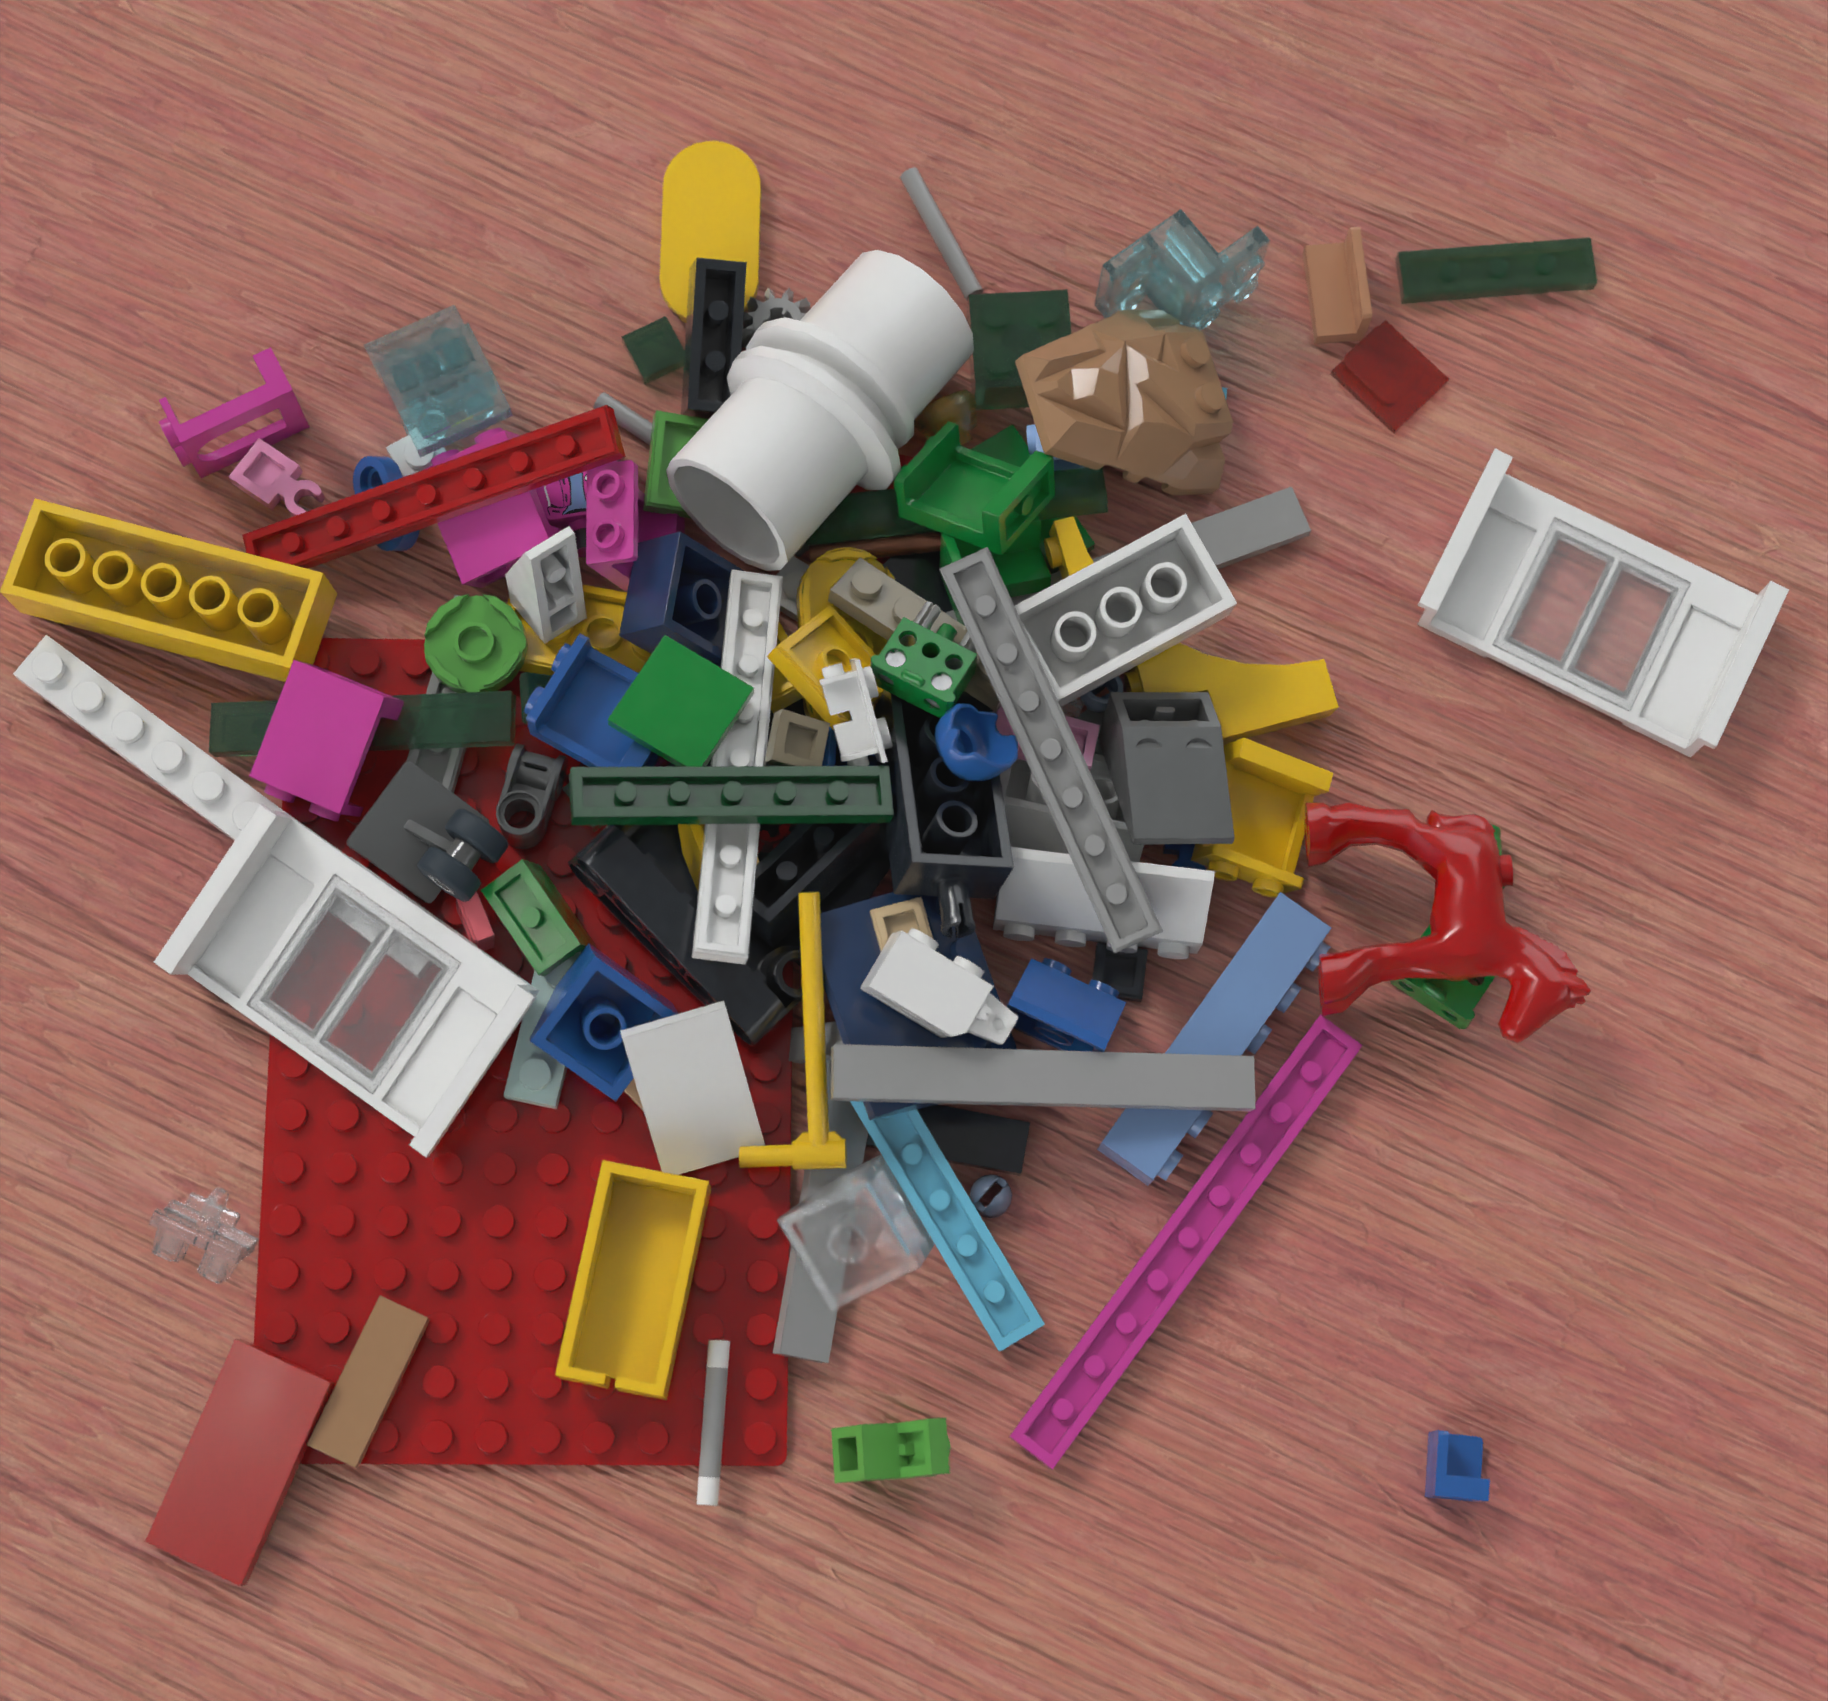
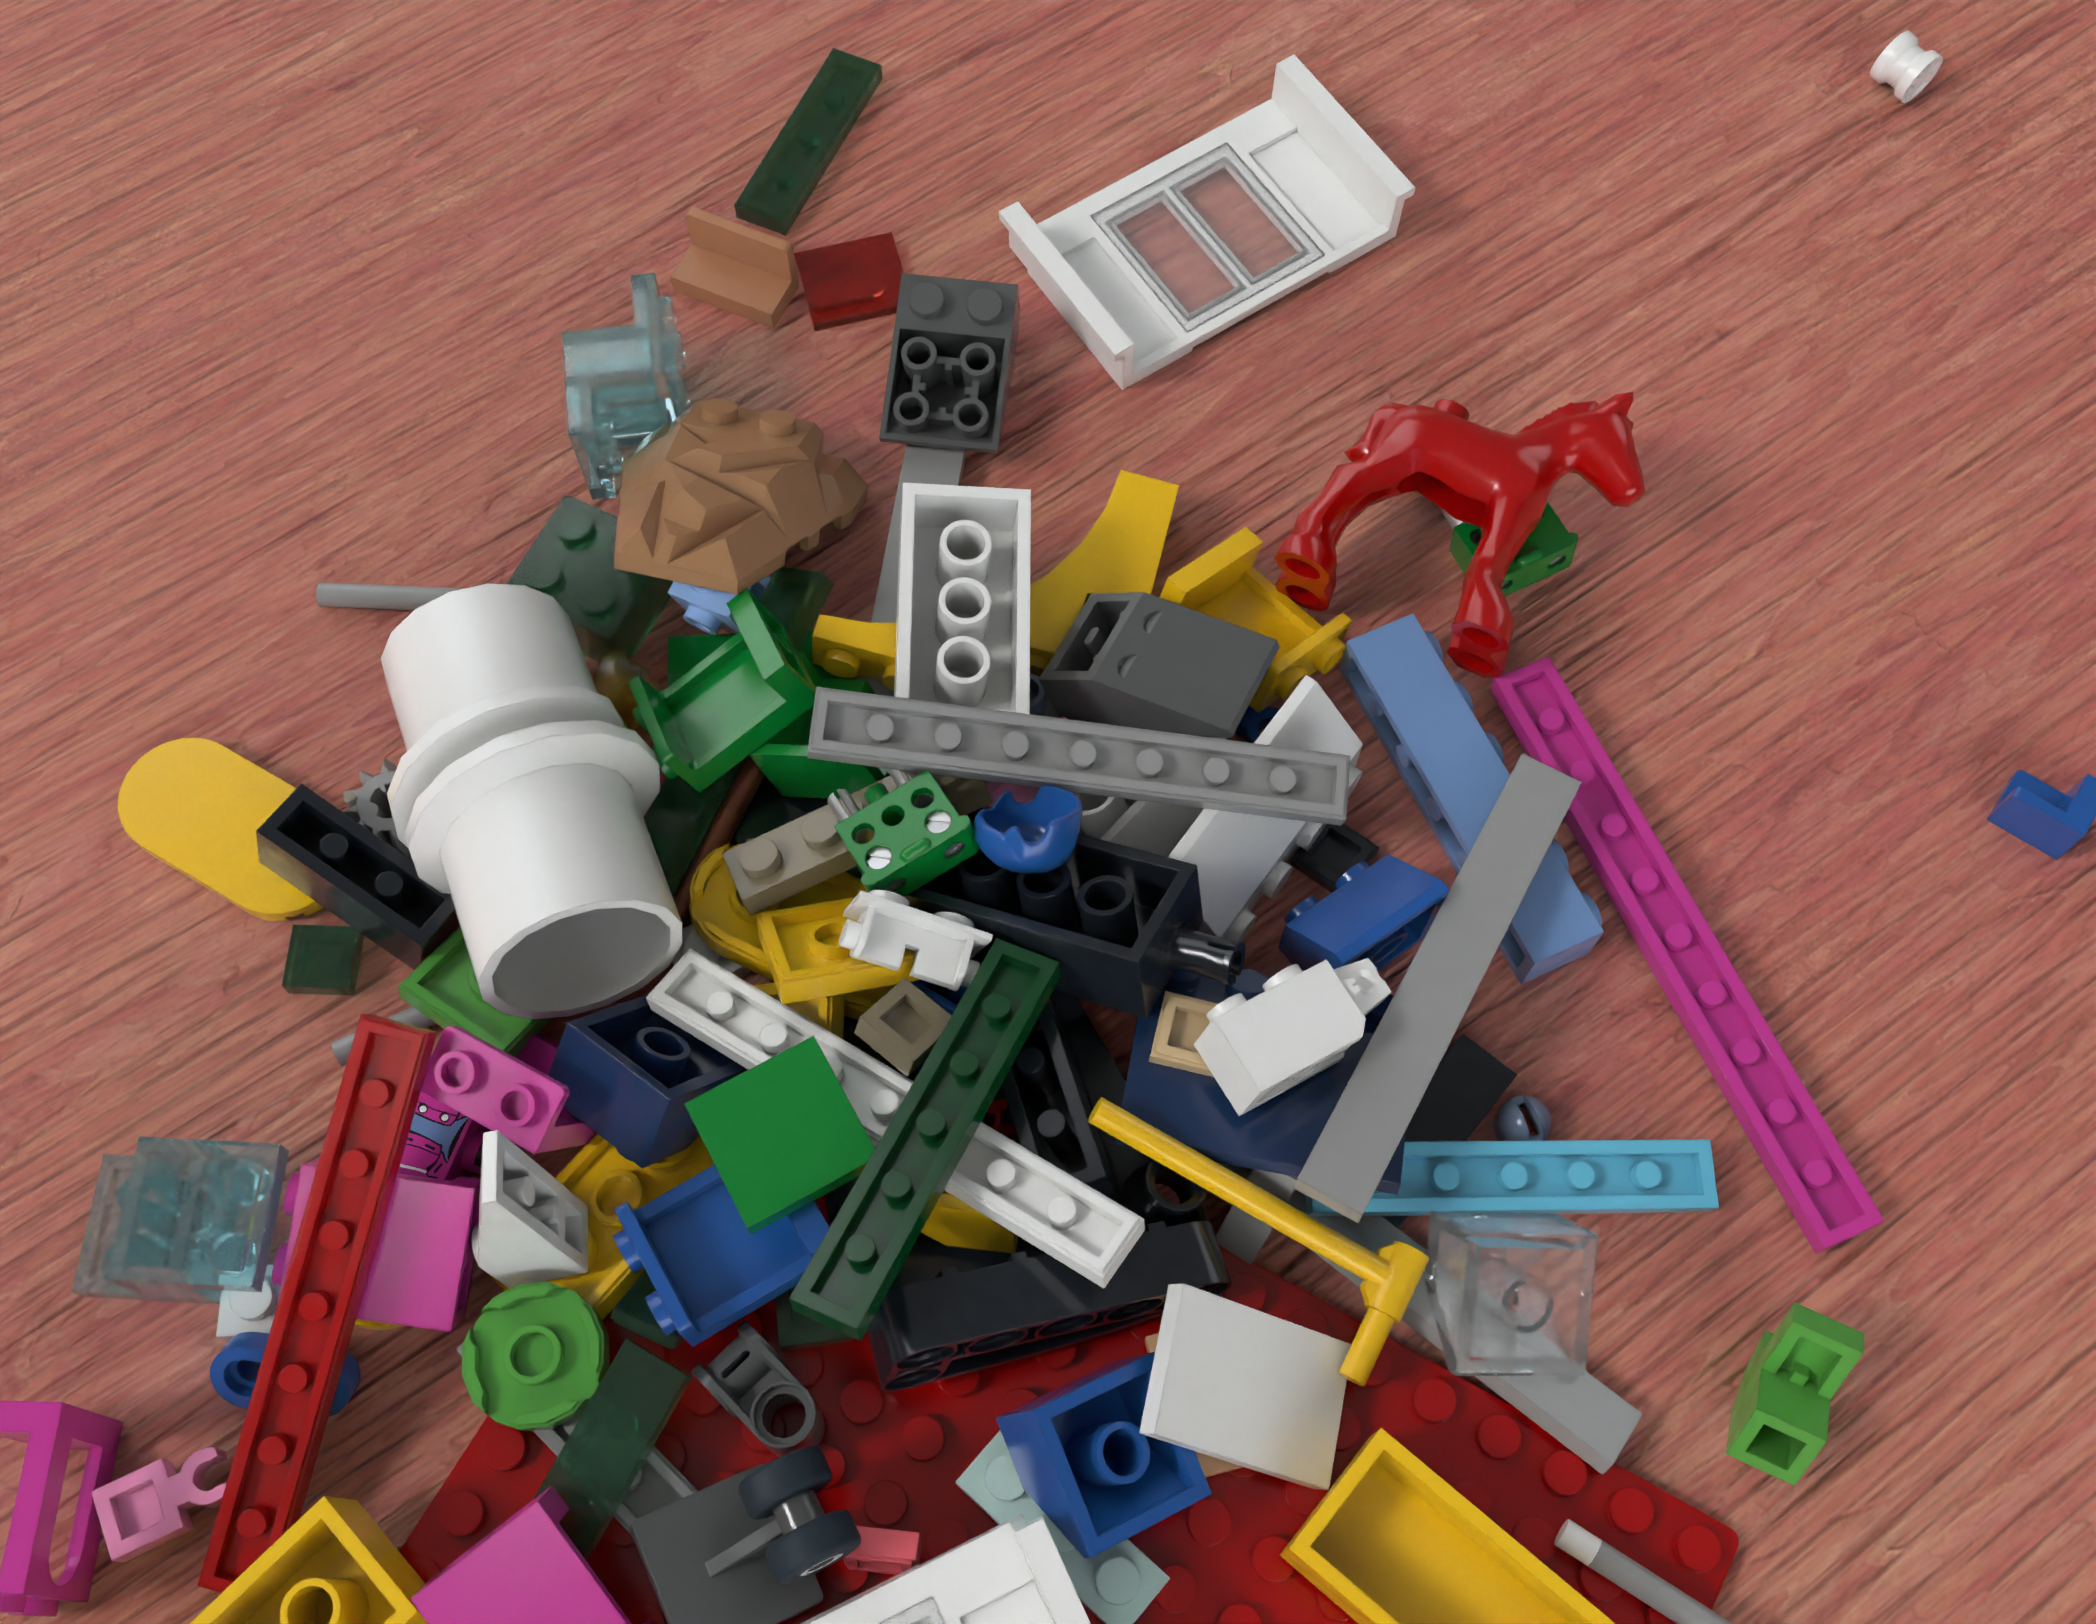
camera: 55 degrees left, 10 degrees down
(536, 916) = (924, 1468): green panel -> none
(1346, 490) = (950, 363): none -> dark grey slope

